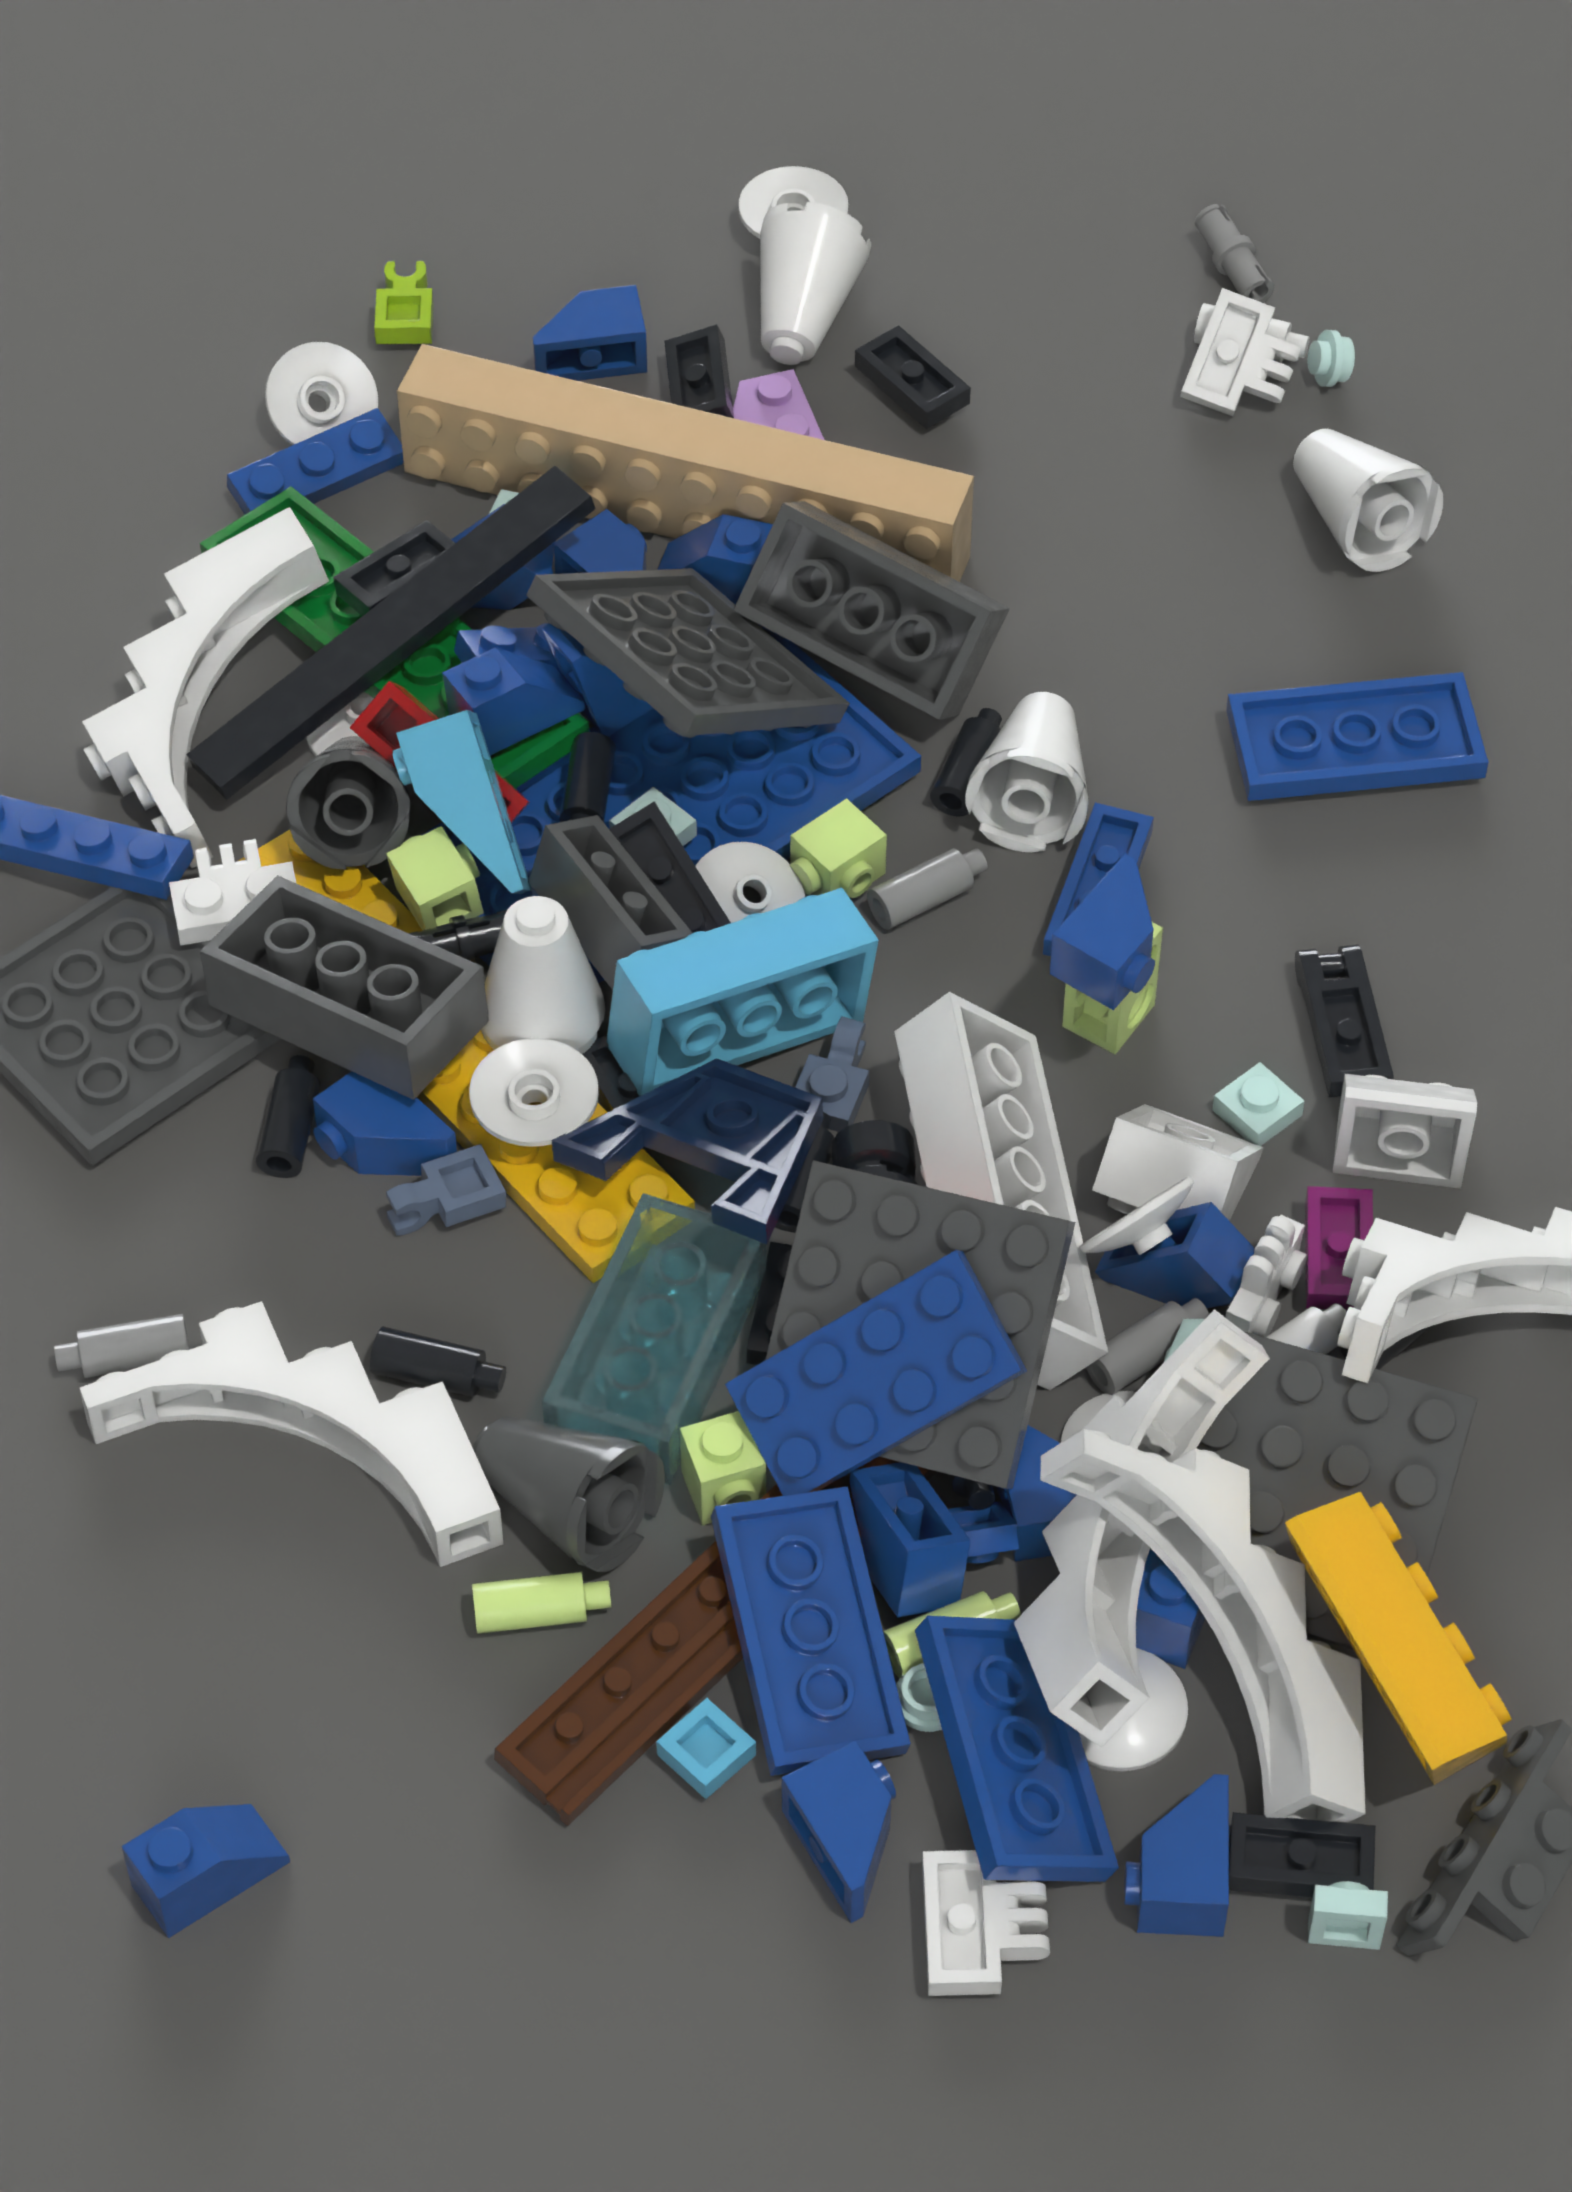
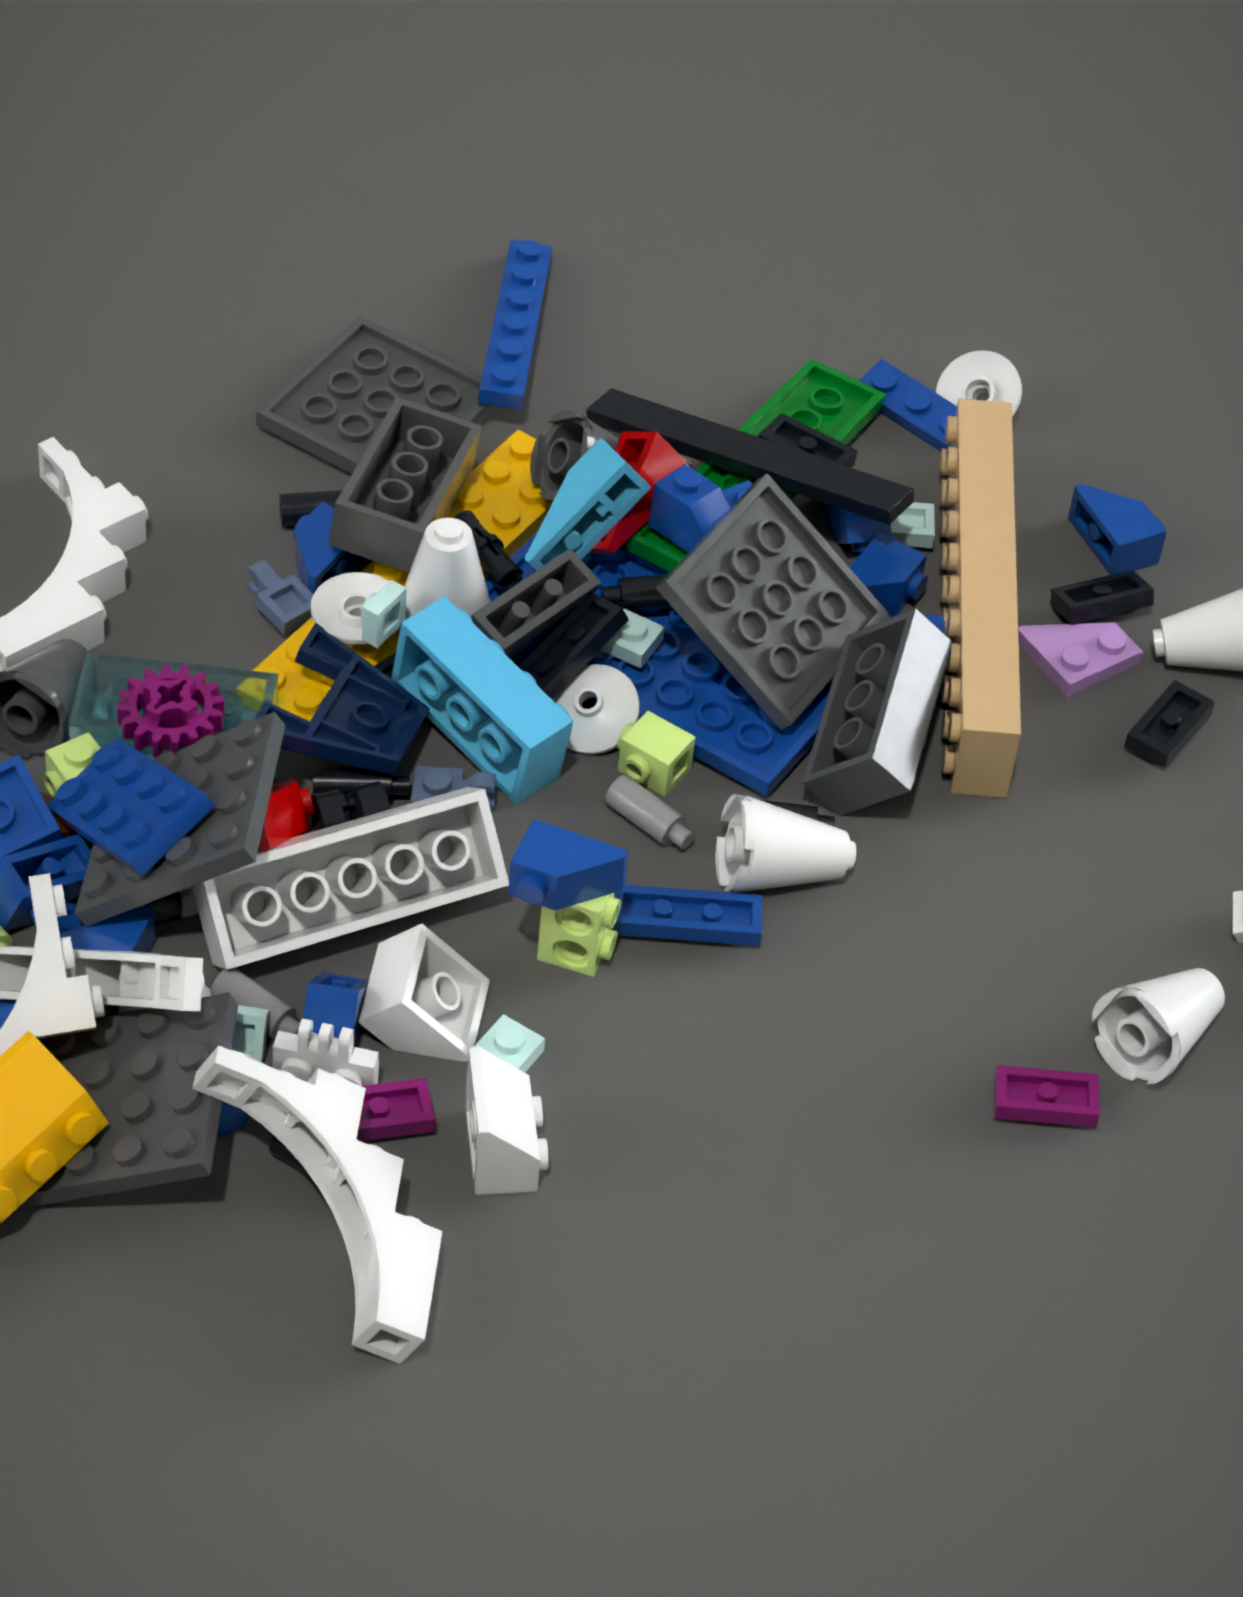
camera: 70 degrees right, 5 degrees down
(122, 1346) = (108, 462): light grey cylinder -> none
(215, 610) = (680, 363): white arch -> none
(221, 891) = (502, 432): white hinge -> none
(404, 308) = (1097, 425): lime plate -> none
(432, 1360) = (137, 616): black cylinder -> none
(435, 878) = (519, 520): yellowish green brick -> none
(584, 1051) = (383, 613): none -> light aqua plate
(707, 1308) = (169, 709): none -> magenta gear
(1144, 1225) = (331, 957): white dish -> none
(1342, 1015) = (607, 1086): black plate -> none
(1356, 736) = (905, 1060): blue plate -> none
(1432, 626) = (1046, 1096): none -> magenta plate

